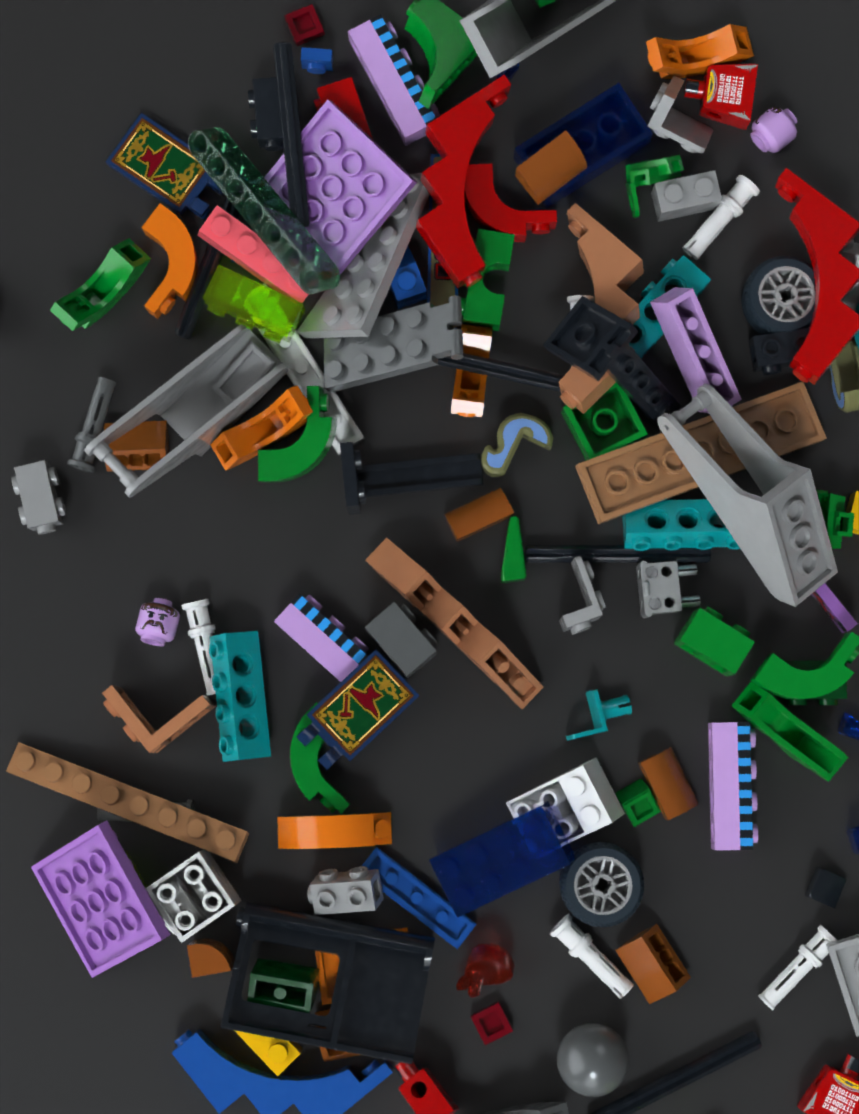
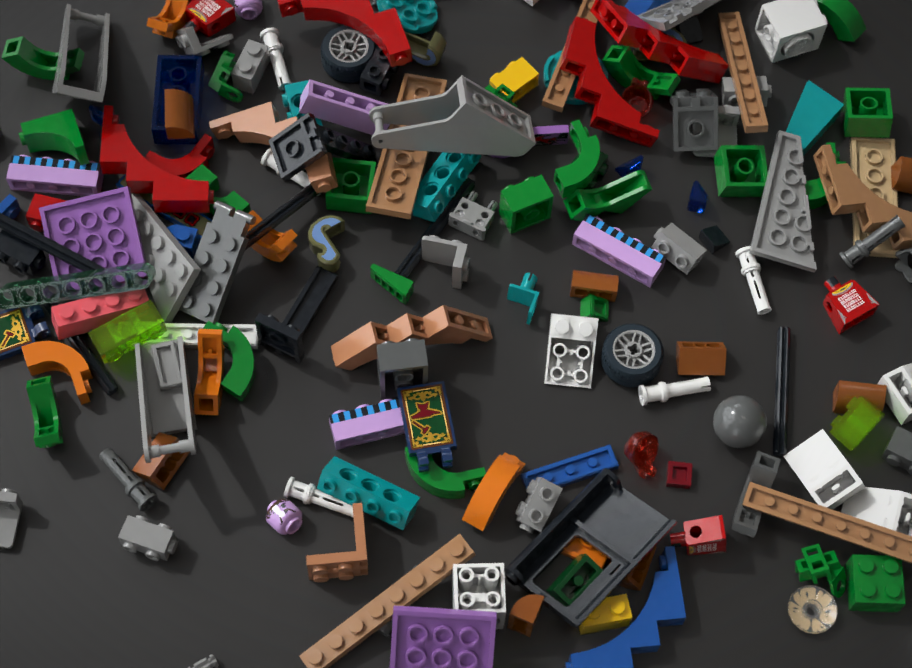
camera: 60 degrees left, 20 degrees down
(479, 514) = (355, 288): dark orange brick -> none
(502, 859) = (579, 397): clear blue brick -> none
(778, 855) = (678, 248): none -> light grey brick

